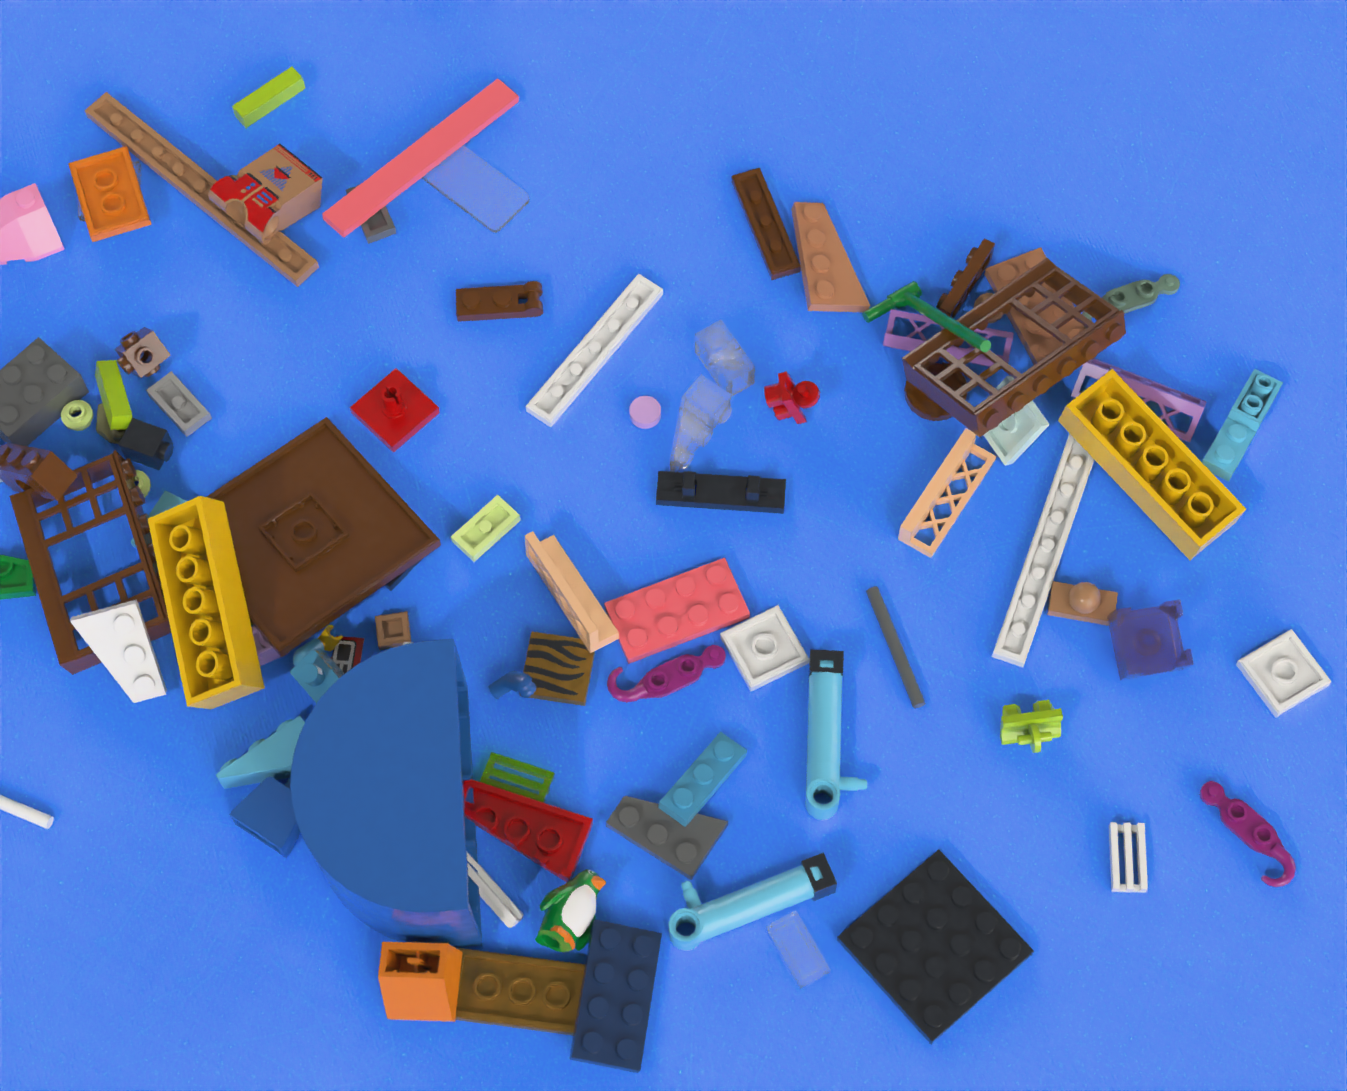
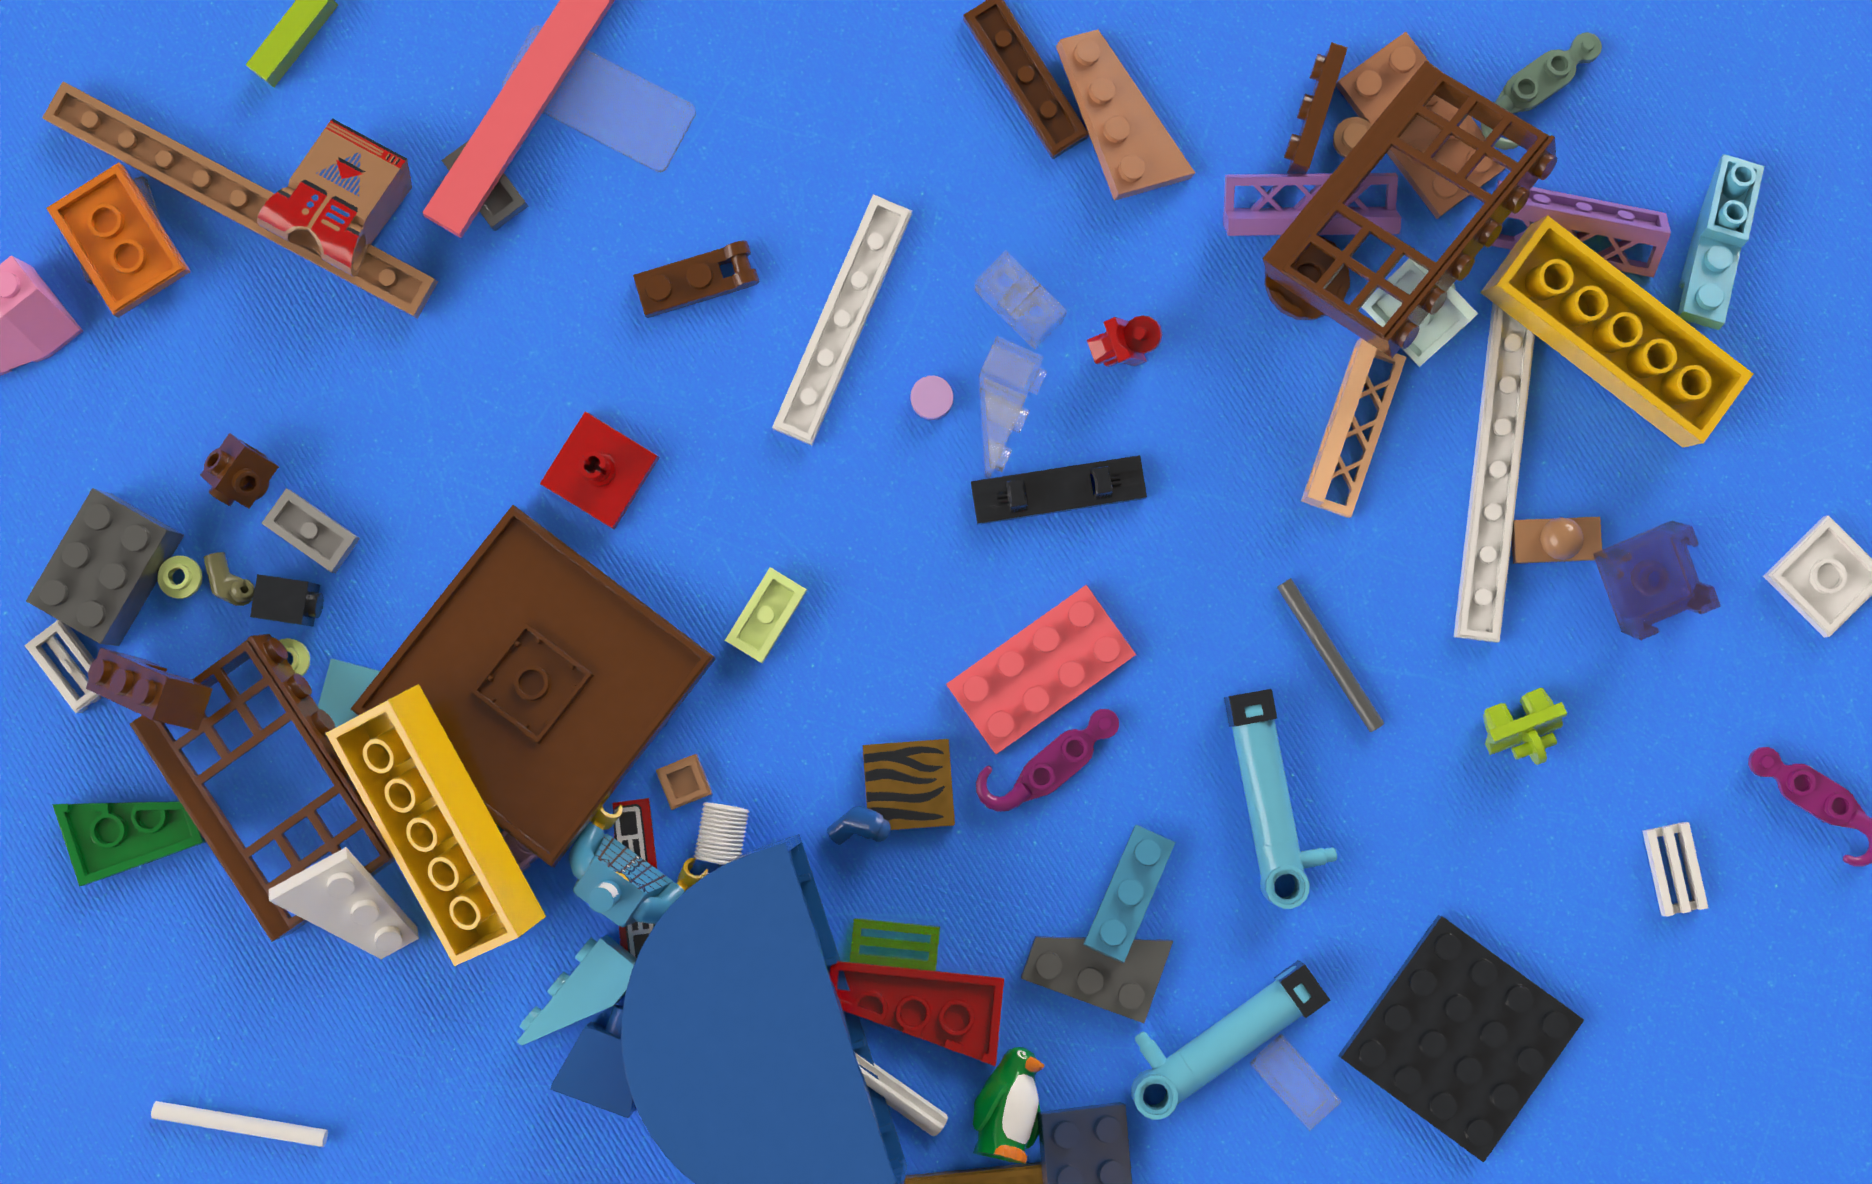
camera: 10 degrees left, 20 degrees up
(113, 394) = (219, 542): lime piece -> none
(570, 592) = (900, 680): light nougat fence -> none
(764, 648) = (1164, 695): white tile -> none
(910, 296) = (1243, 147): green bar -> none

